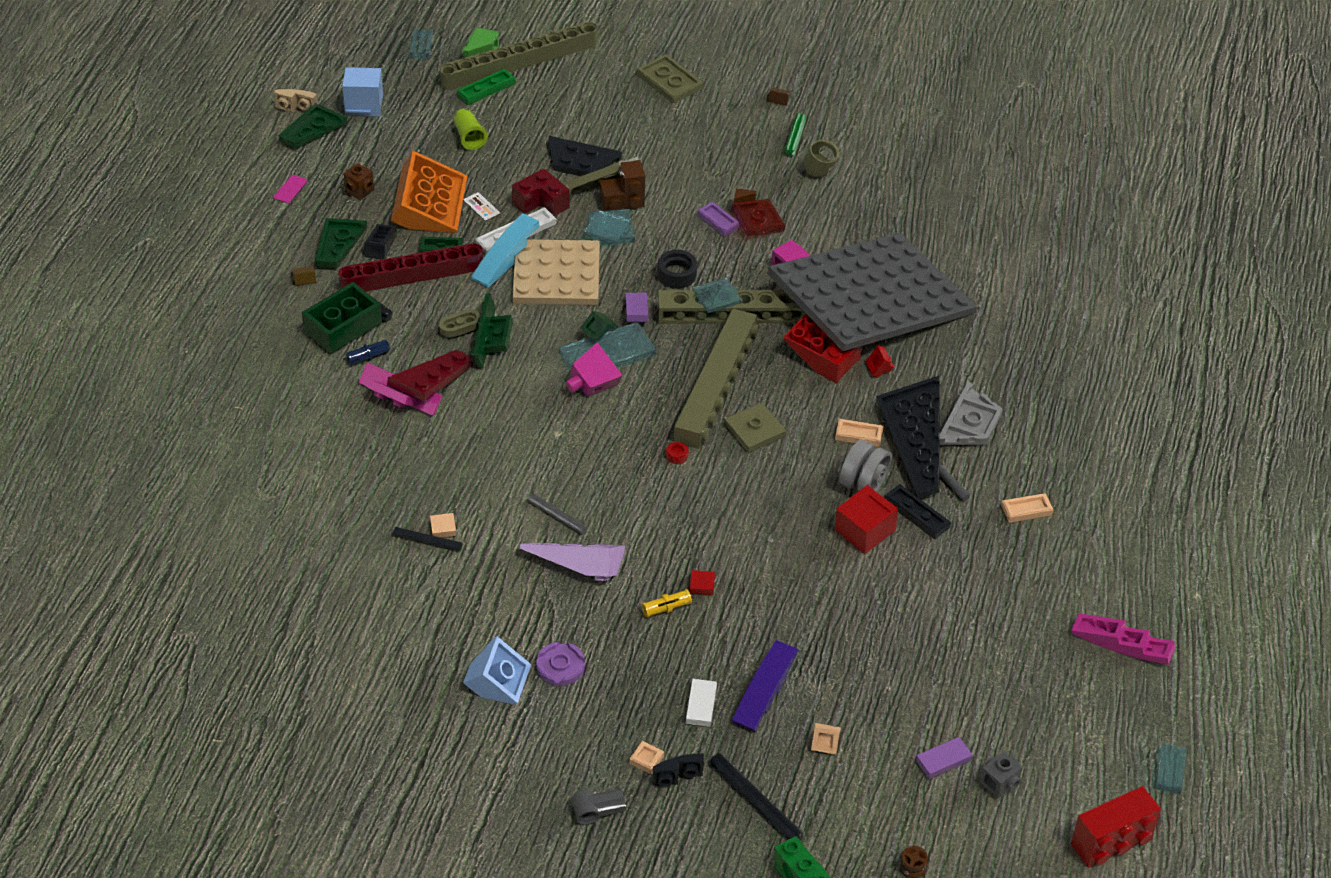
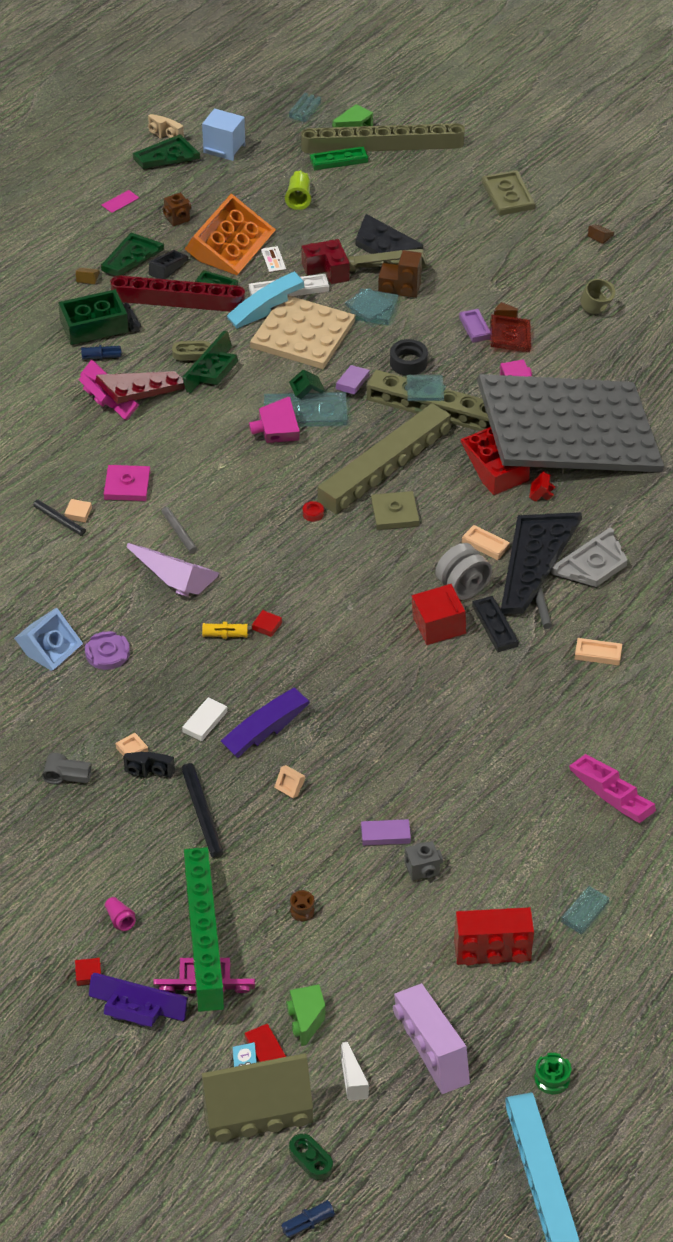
camera: 25 degrees right, 0 degrees up
(475, 481) = (127, 483): none -> dark pink plate
(795, 134) = (590, 272): green axle -> none

